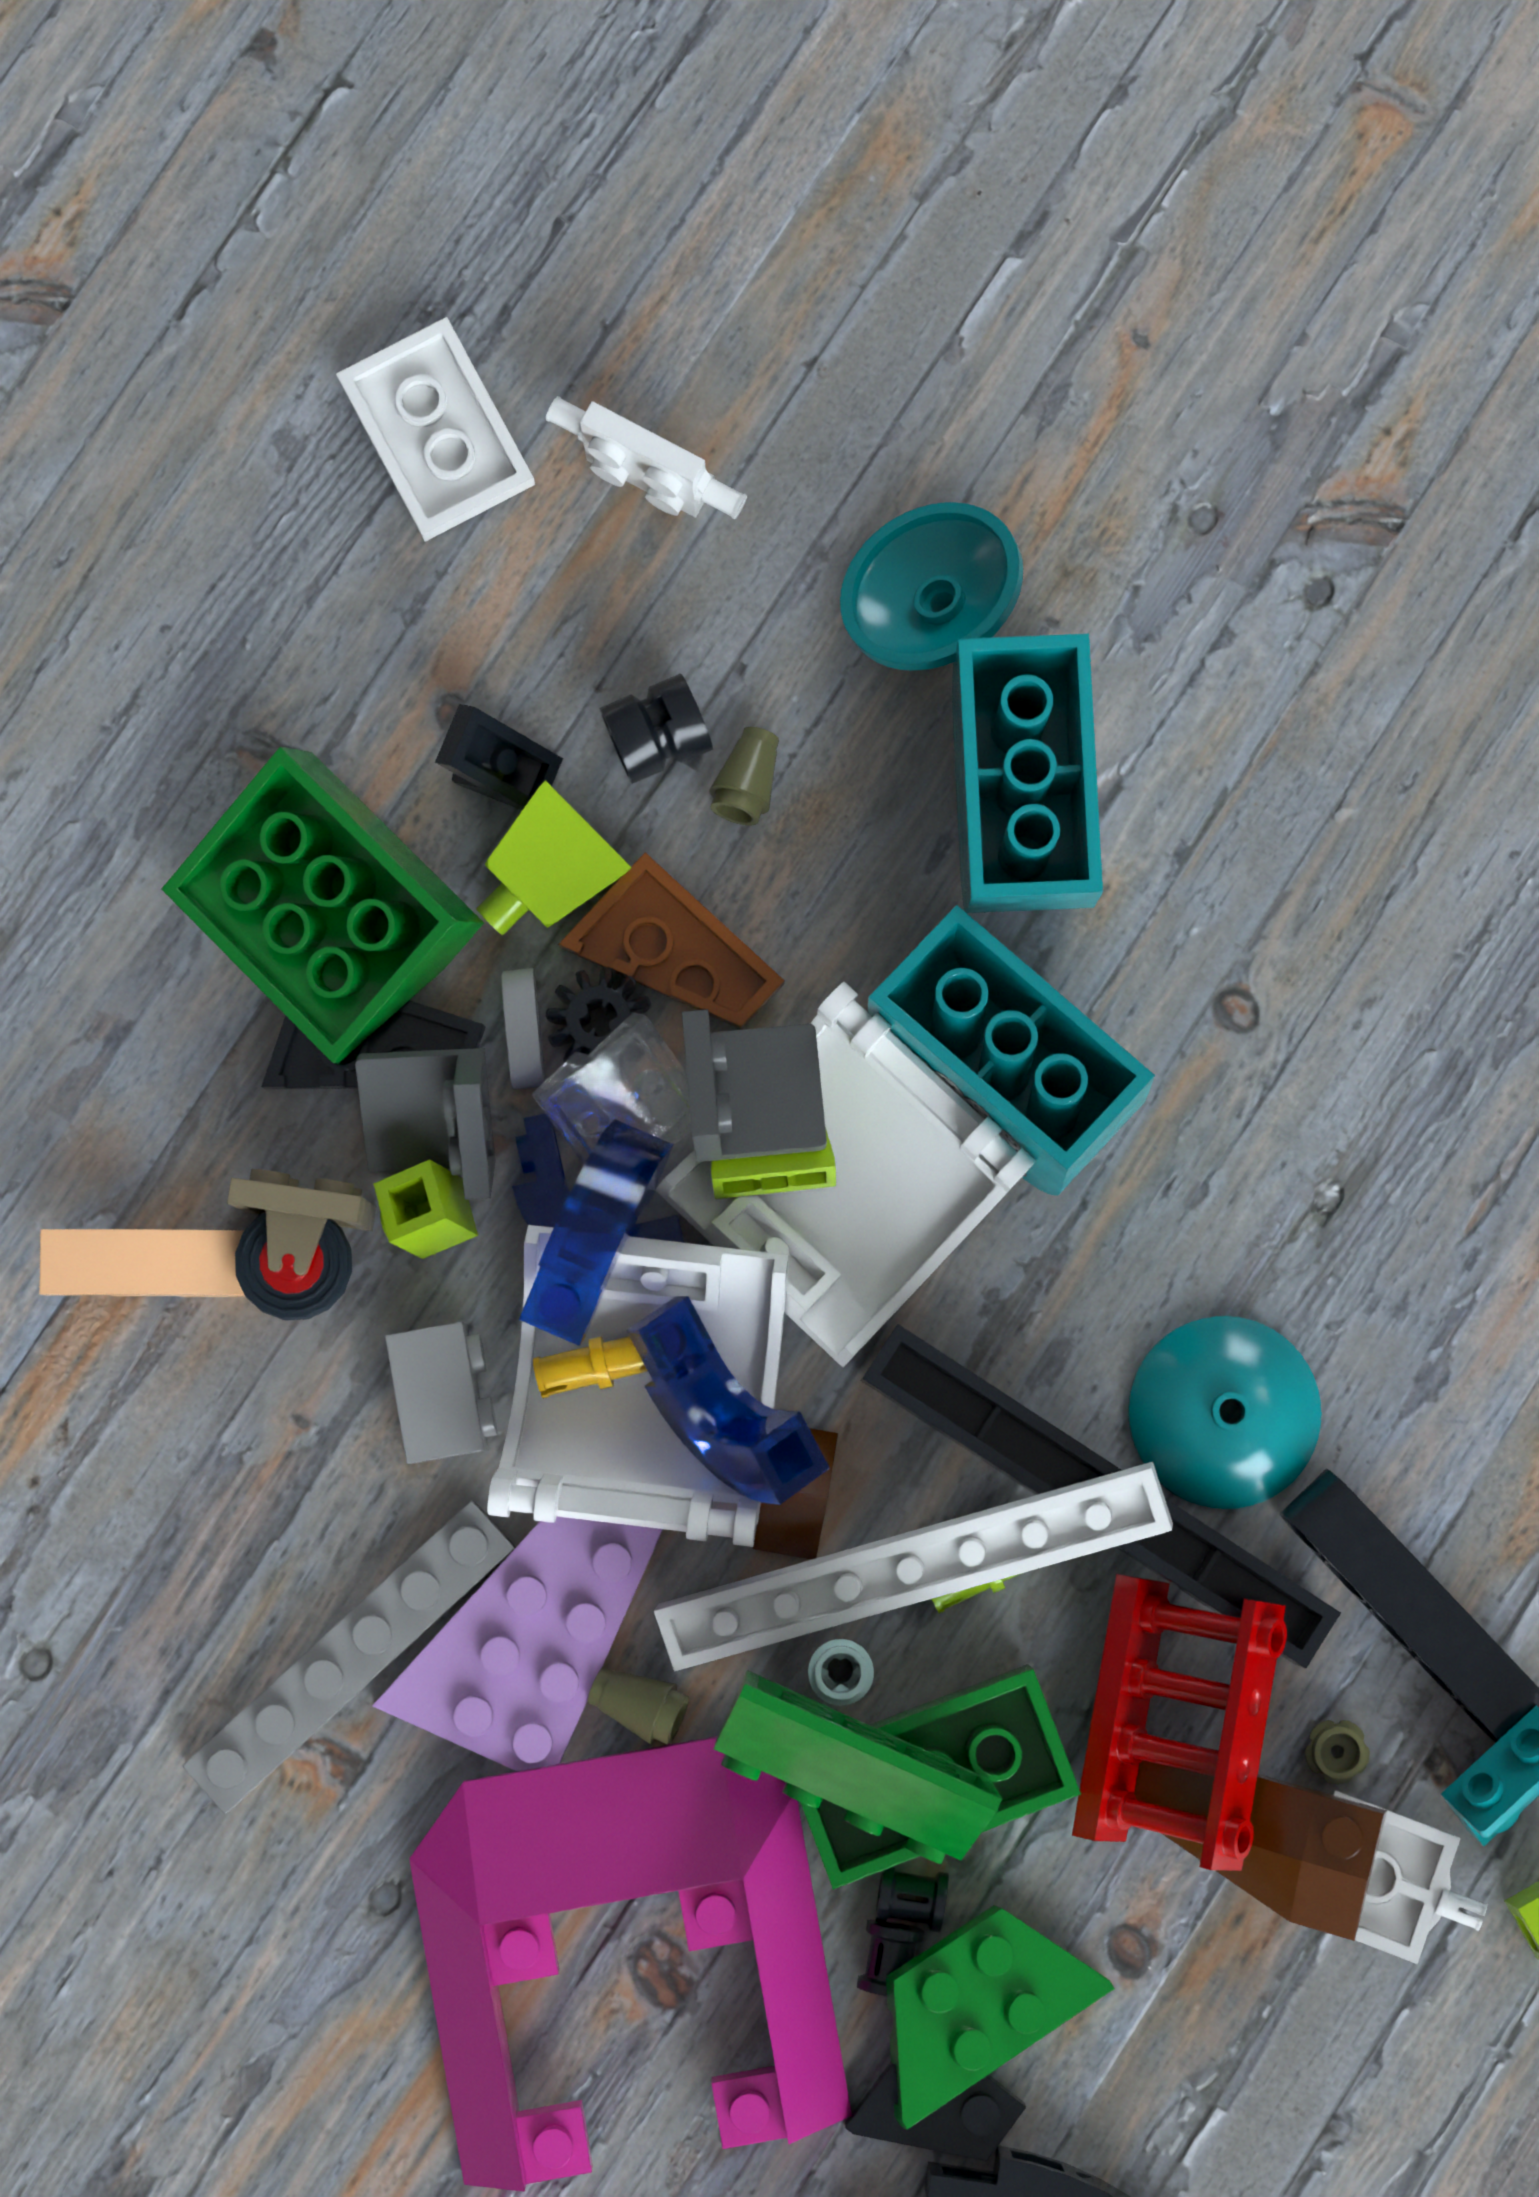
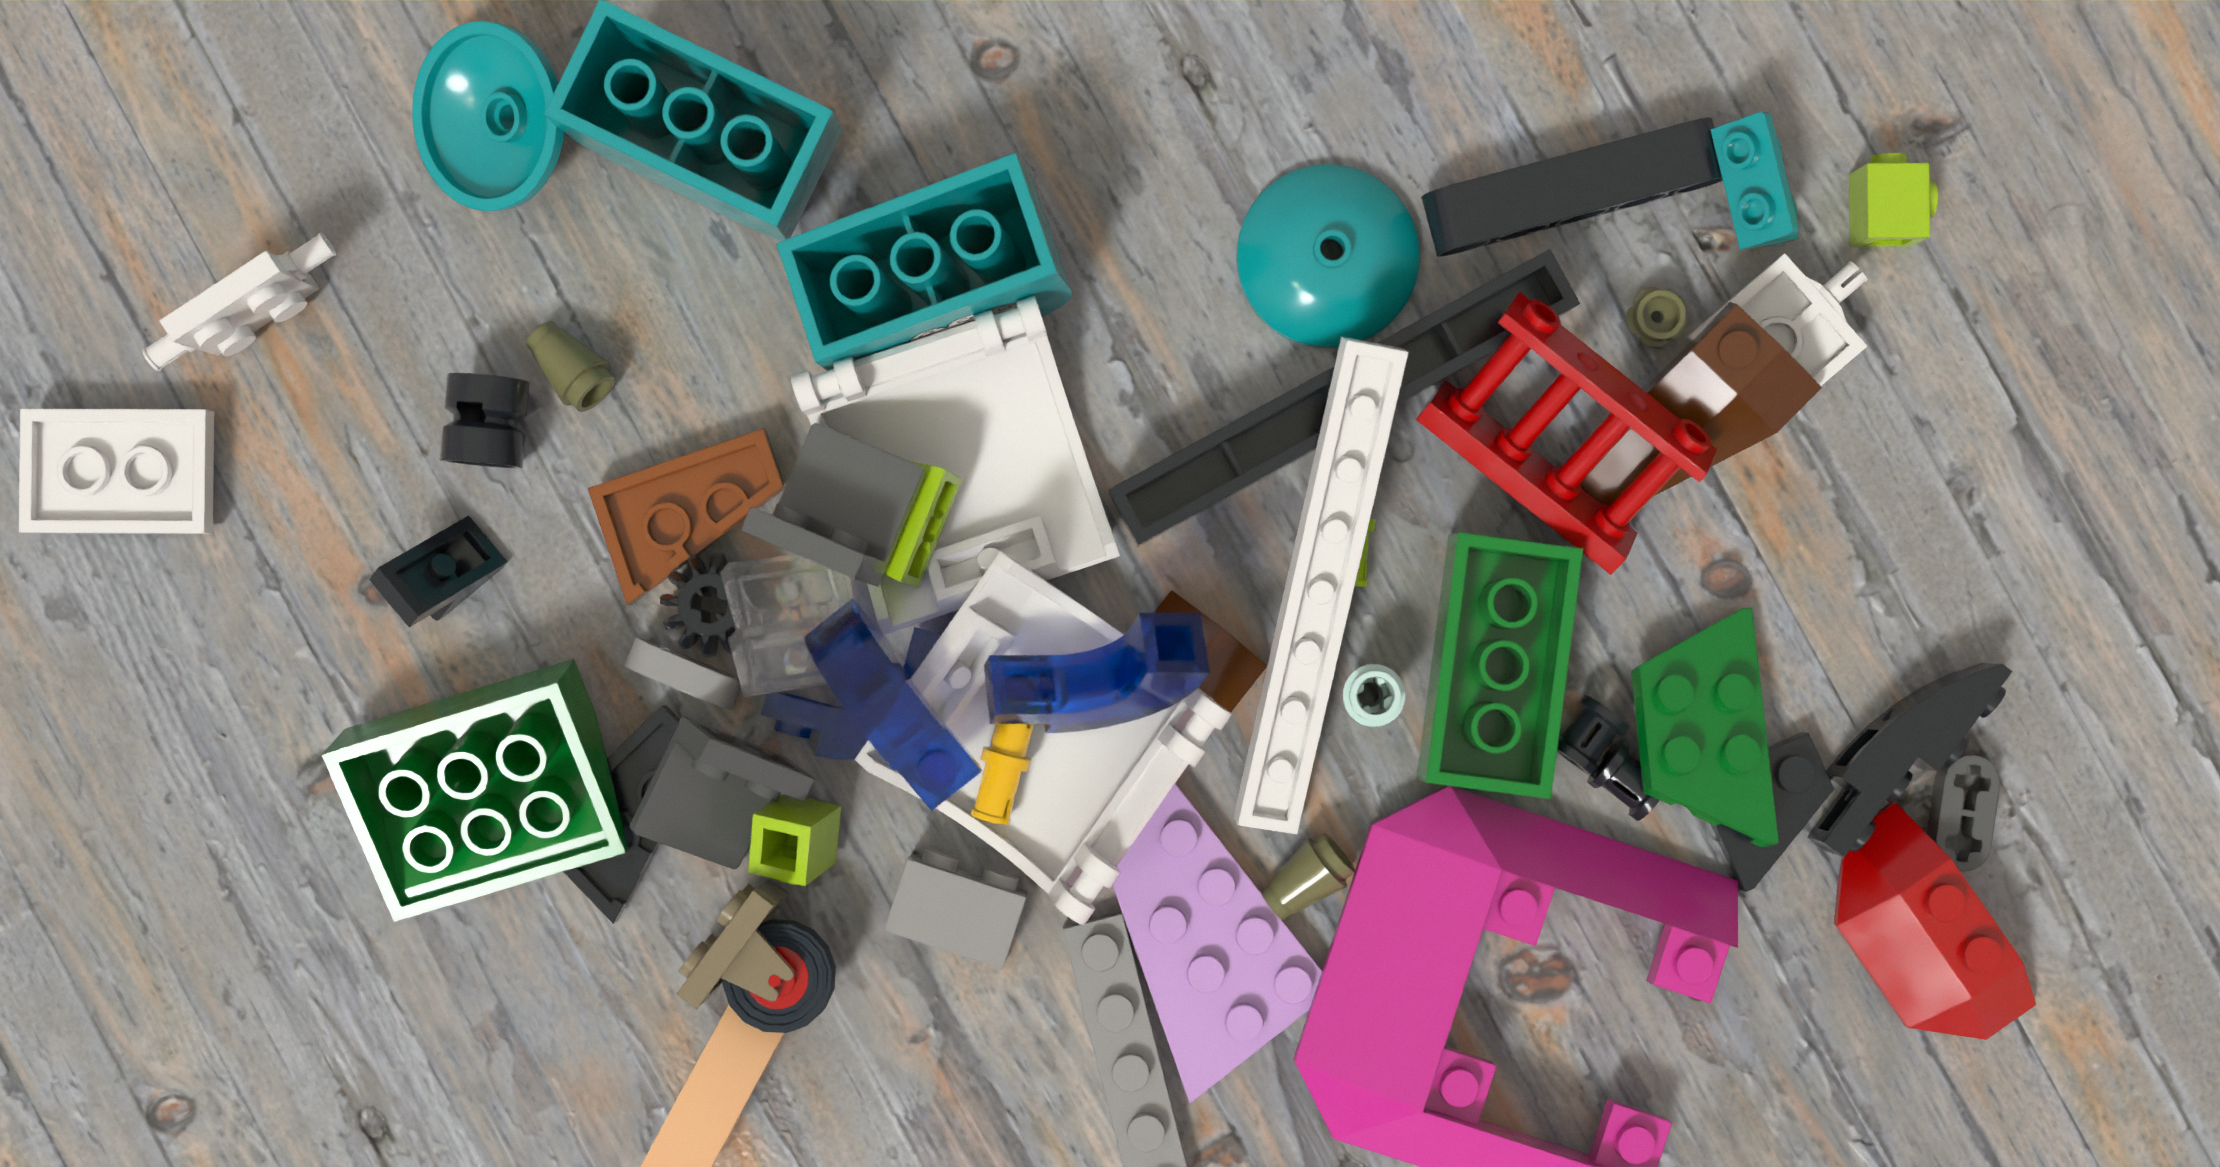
camera: 65 degrees left, 5 degrees up
(548, 864) = (551, 576): lime torso -> none
(855, 1767) = (1463, 725): green slope -> none

